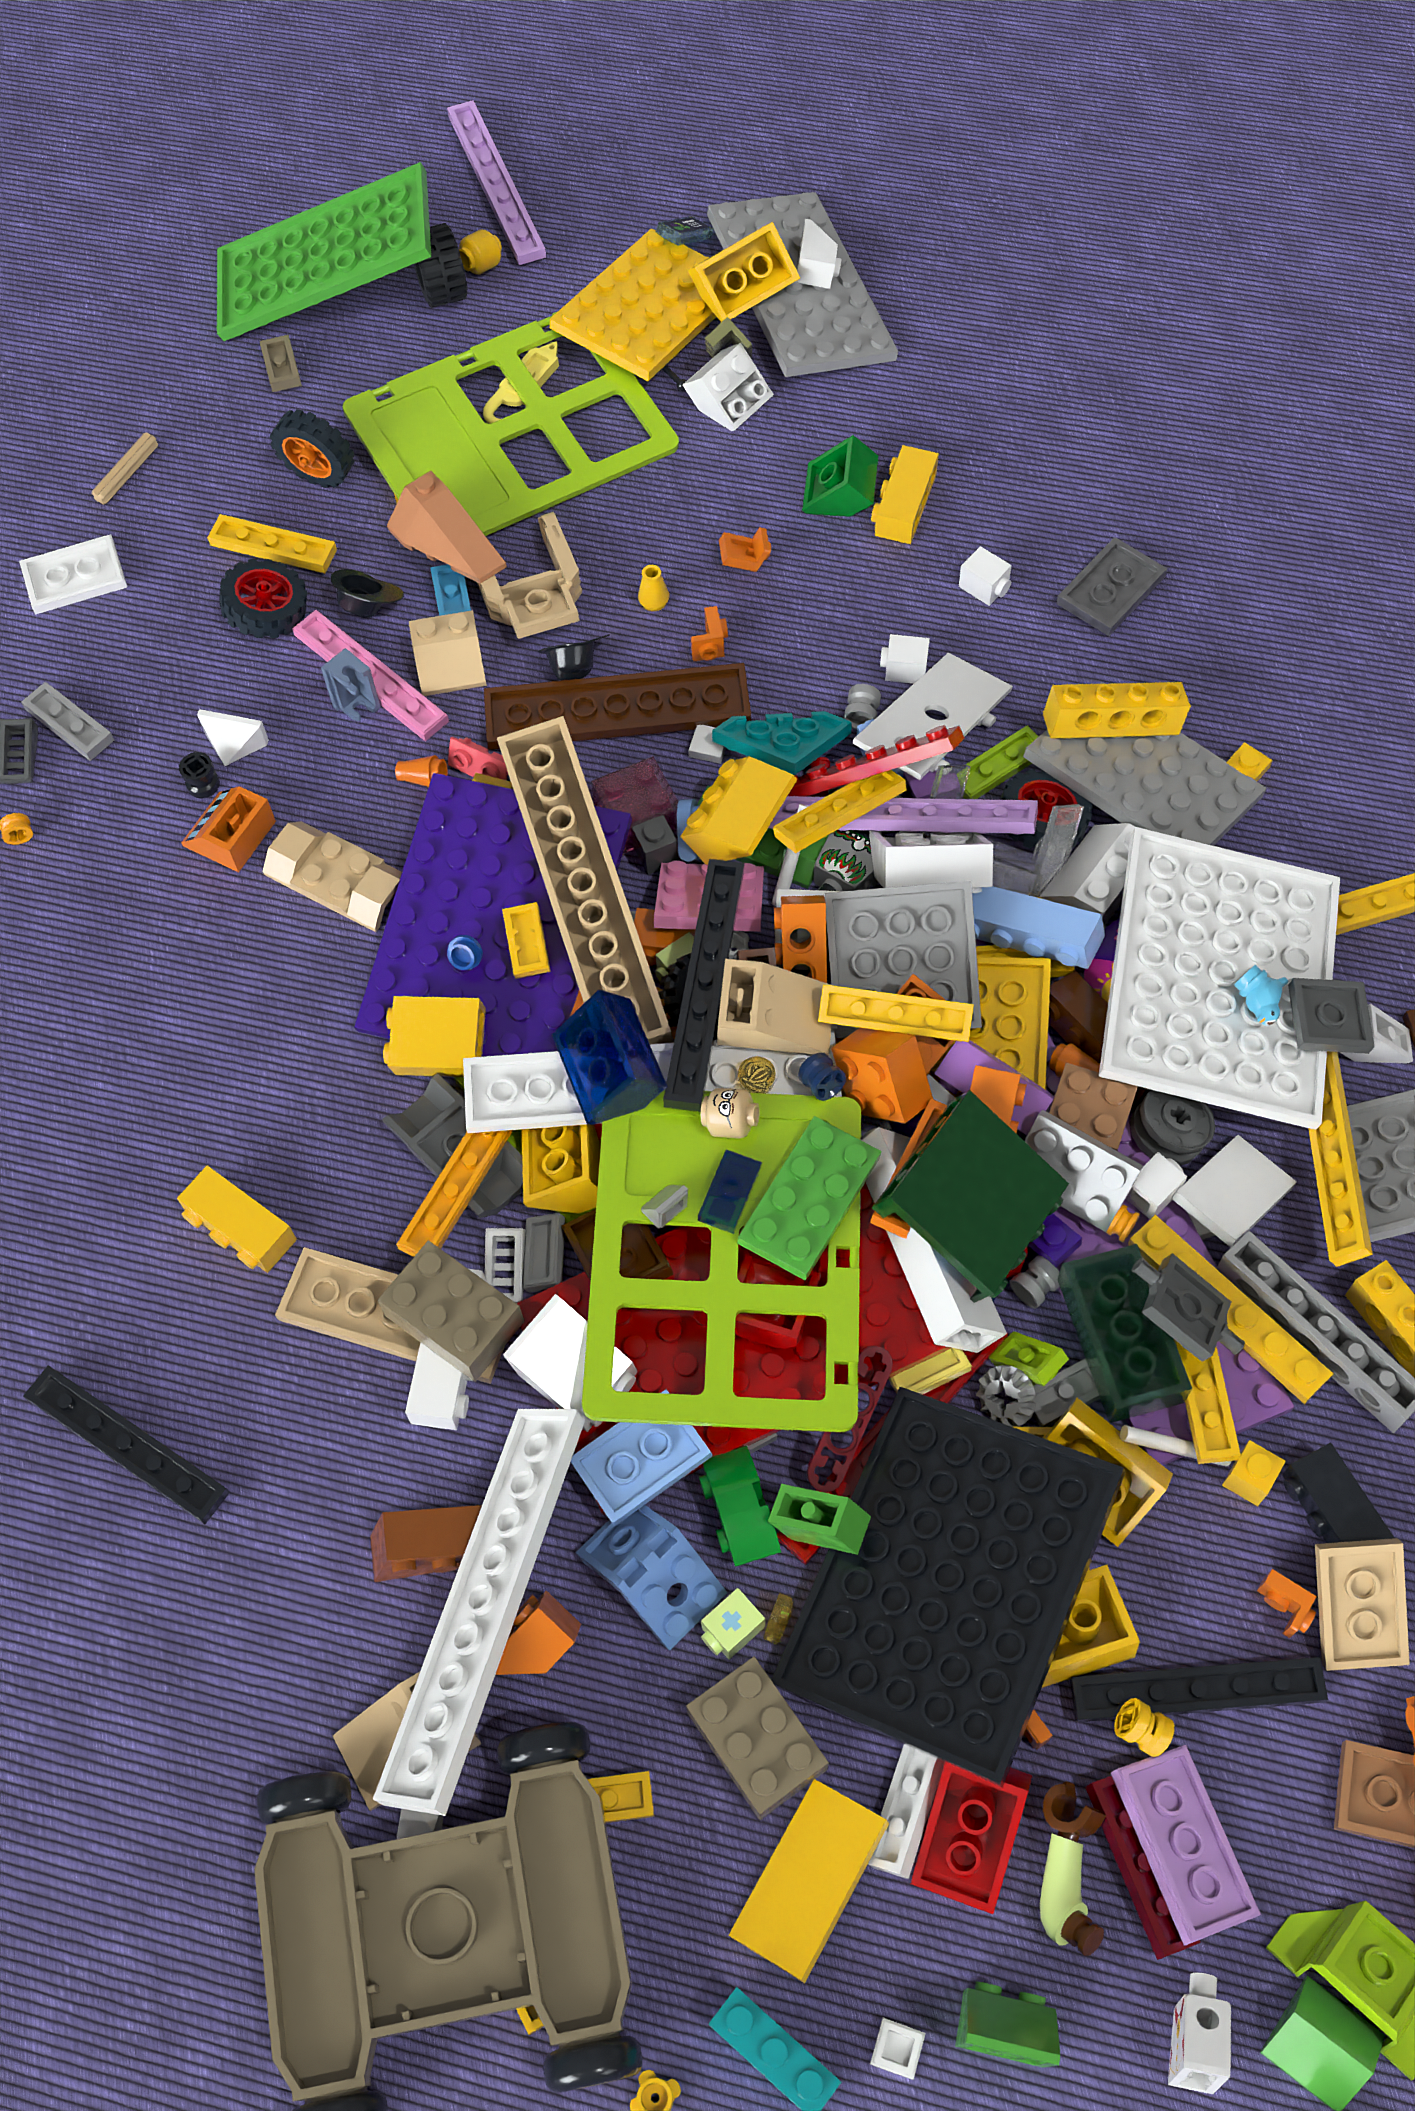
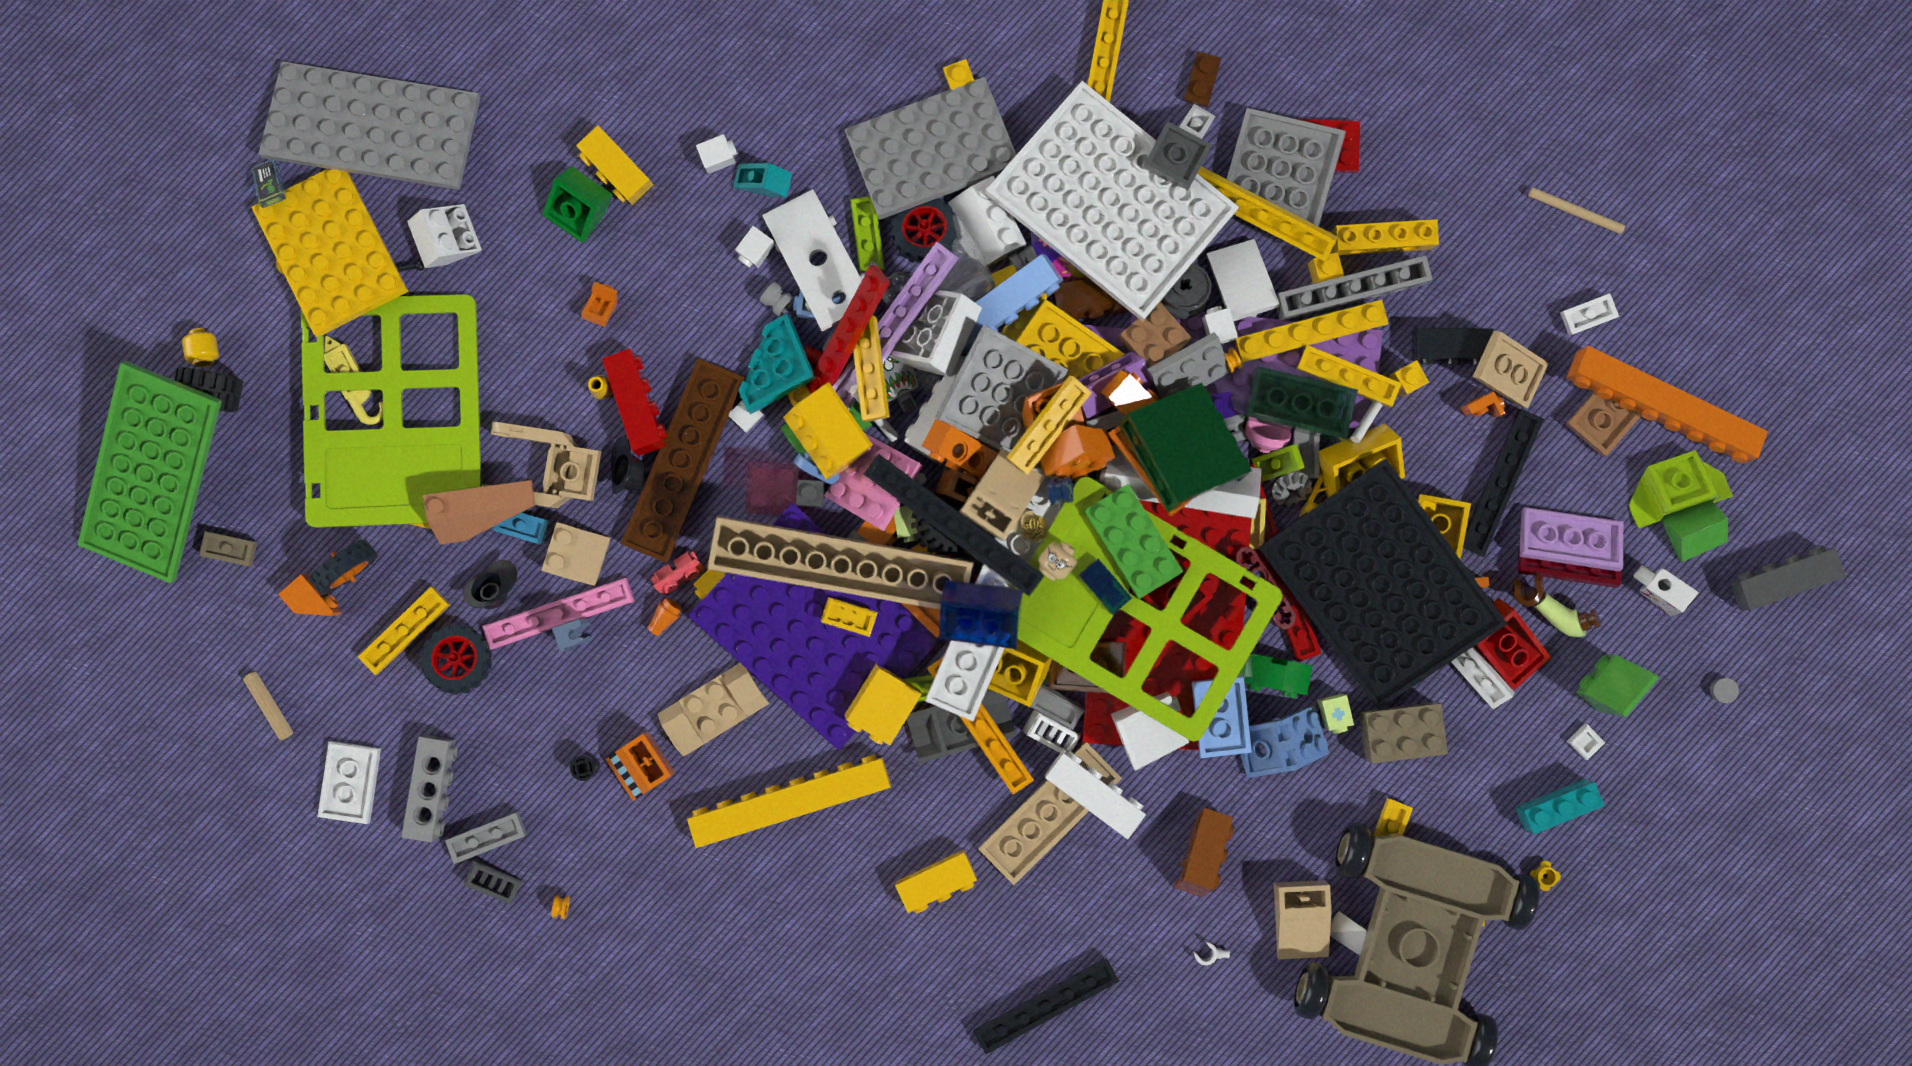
camera: 65 degrees left, 25 degrees up
(100, 641) = (415, 825): none -> light grey brick
(232, 735) = (564, 731): white slope -> none
(258, 450) = (305, 599): none -> orange slope
(264, 1005) = (789, 801): none -> yellow brick
(301, 1641) = (1217, 953): none -> white piece
(451, 1310) = (1086, 785): dark tan brick -> none
(464, 952) = (836, 660): blue plate -> none
(479, 1612) = (1267, 848): white plate -> none
(496, 183) = (125, 297): lavender plate -> none
(538, 1637) = (1292, 828): orange slope -> none
(653, 625) = (634, 402): none -> red brick
(666, 1205) = (1094, 630): light grey slope -> none
(711, 644) = (658, 361): orange bracket -> none
(725, 335) = (402, 217): olive panel -> none
(744, 273) = (354, 169): yellow slope -> none
(779, 1618) = (1344, 684): clear yellow tile -> none
(809, 1880) = (1486, 743): yellow tile -> none
(817, 257) = (363, 105): white slope -> none
(819, 1518) = (1313, 637): bright green brick -> none
(989, 632) = (763, 179): none -> teal slope
(1053, 1323) = (1267, 437): none -> bright pink piece
(1073, 1055) = (1114, 323): orange cone -> none
(1111, 586) = (771, 73): flat silver plate -> none
(1116, 709) = (885, 141): yellow brick -> none
(1138, 1724) = (1510, 525): yellow wheel -> none
(1187, 1307) = (1311, 362): dark grey plate -> none
(1261, 994) = (1144, 189): medium azure animal -> none
(1327, 1279) = (1325, 270): none -> yellow brick

